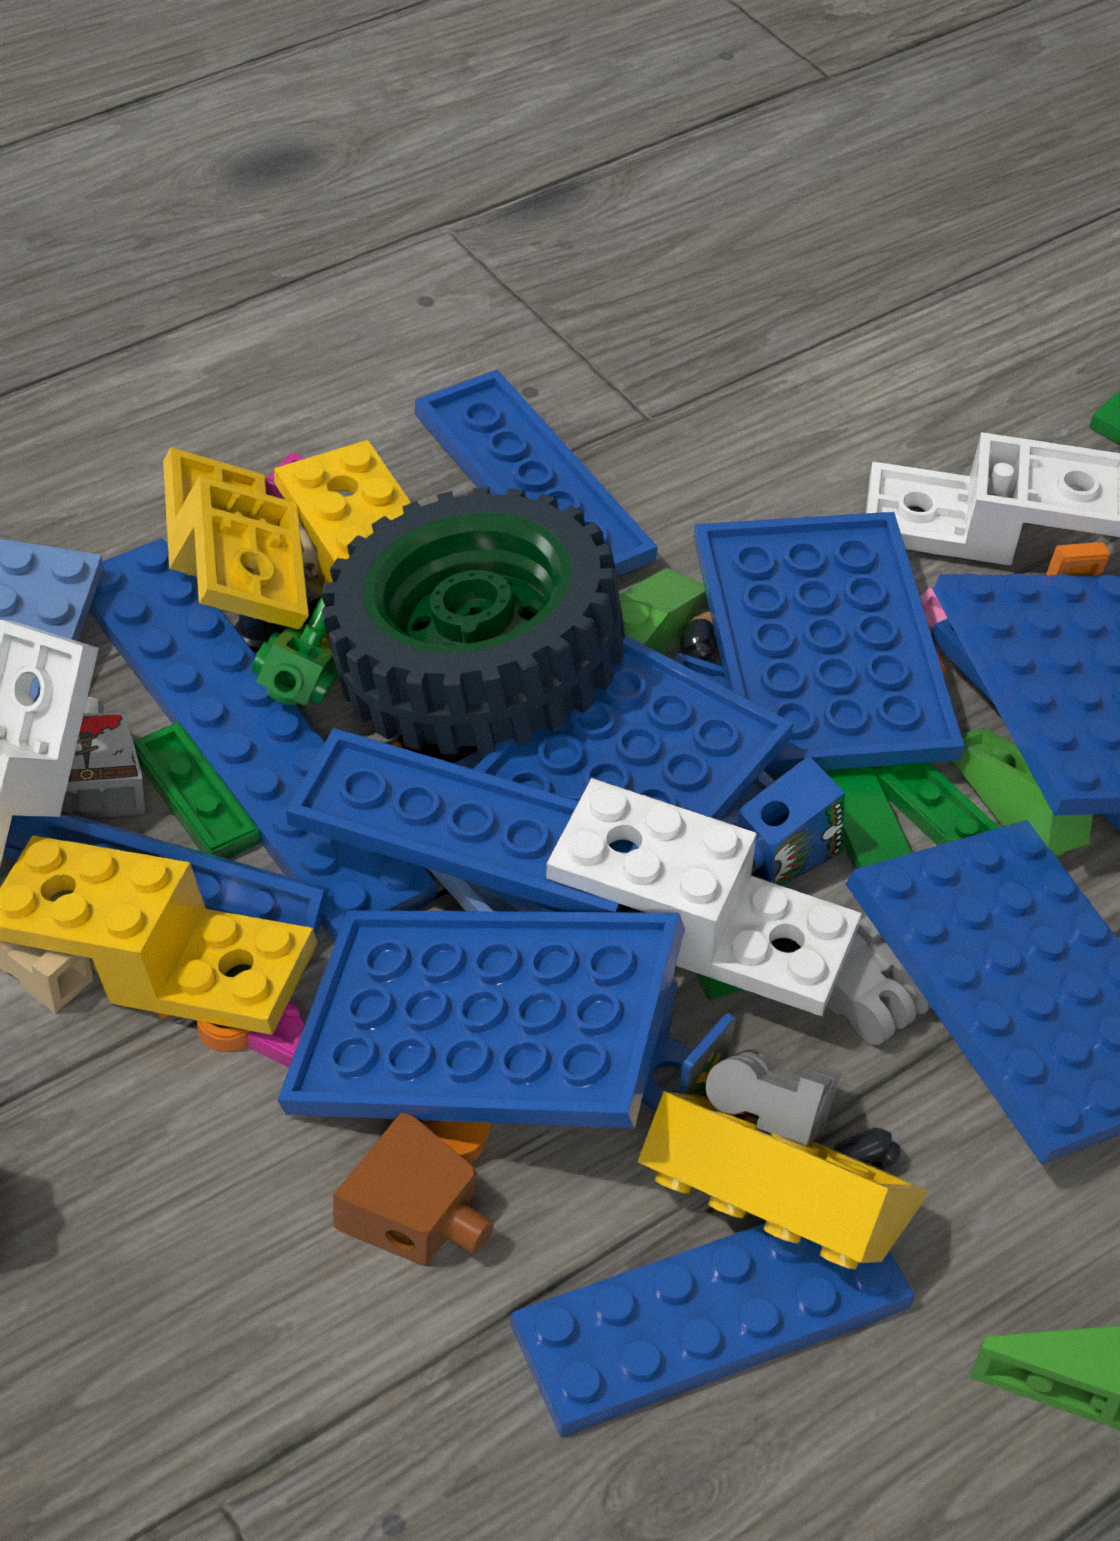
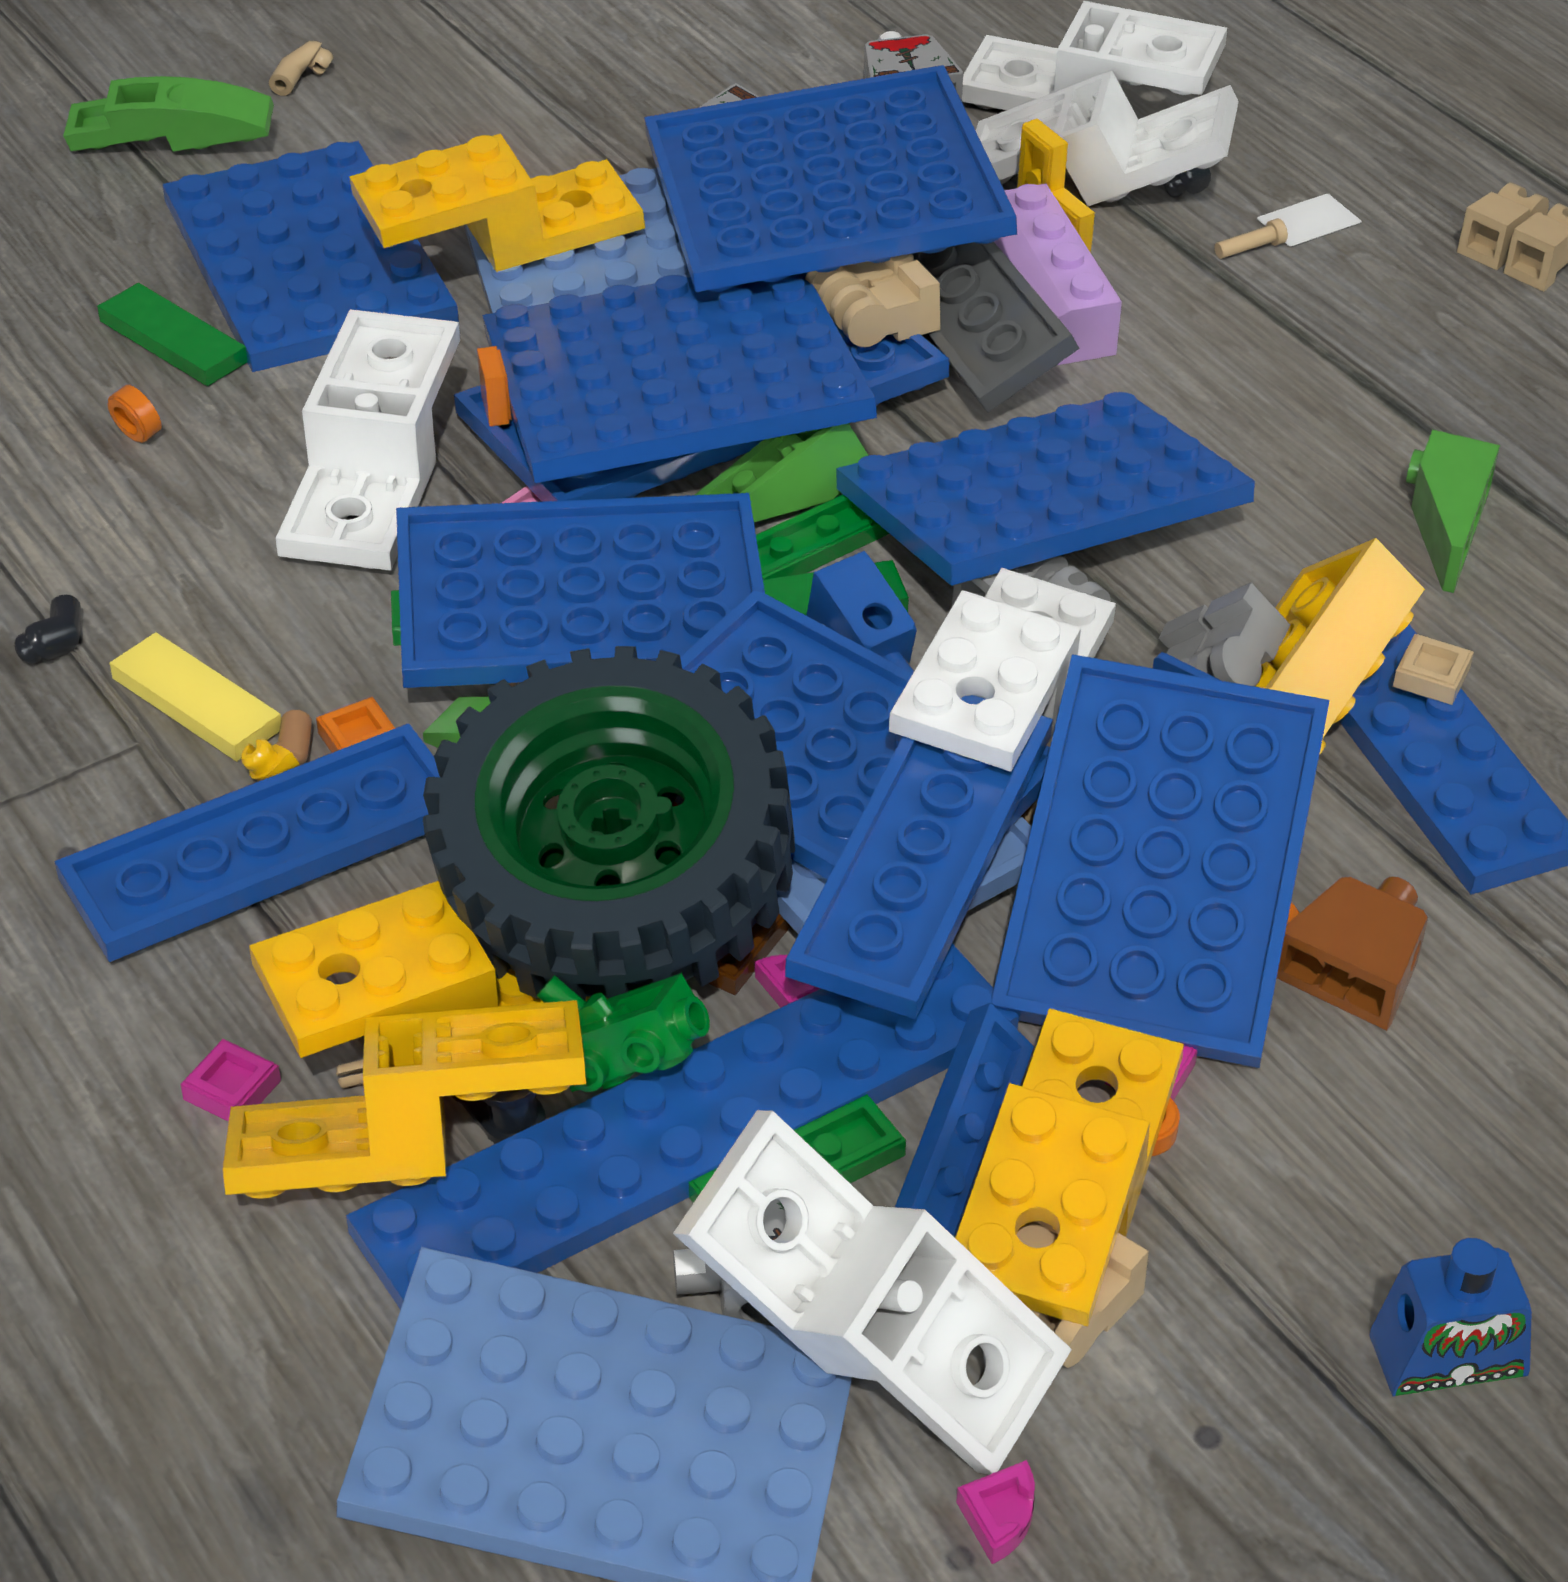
camera: 85 degrees left, 5 degrees down
(634, 491) = (284, 755): none -> arm
(667, 529) = (352, 724): none -> orange tile
(694, 439) = (195, 695): none -> light yellow tile
(755, 361) = (53, 635): none -> black arm
(792, 1299) = (1433, 669): none -> tan tile
(1021, 376) = (134, 413): none -> orange tile

